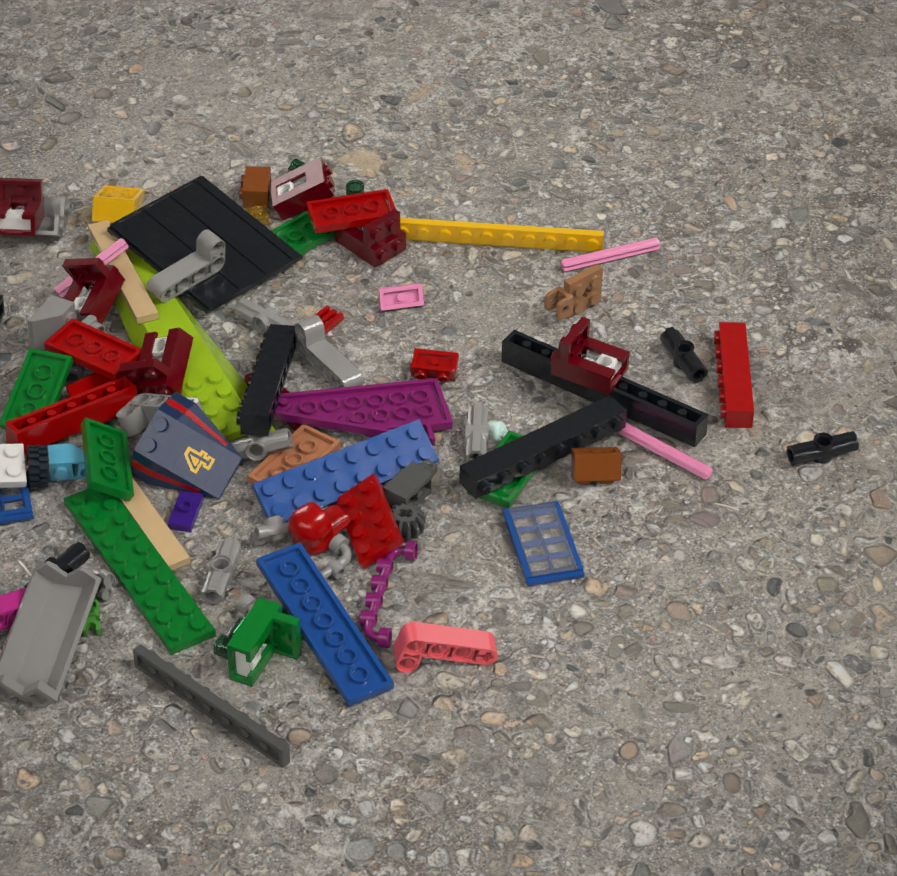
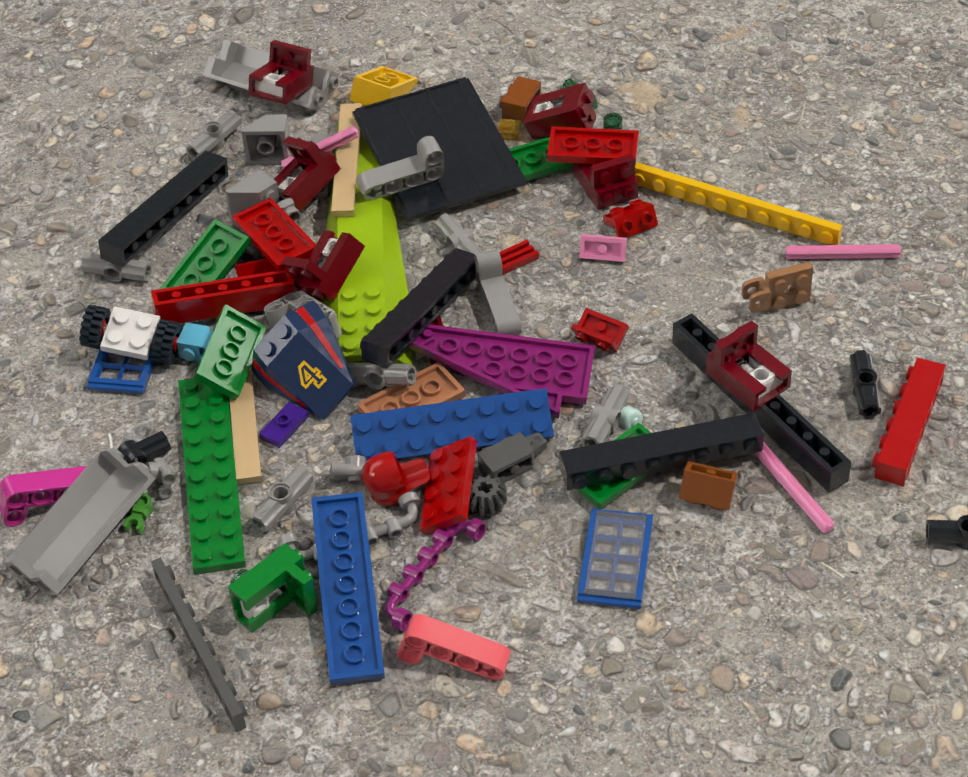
camera: 25 degrees right, 5 degrees up
(35, 271) = (265, 139): none -> light grey slope
(412, 267) = (632, 219): none -> red bracket

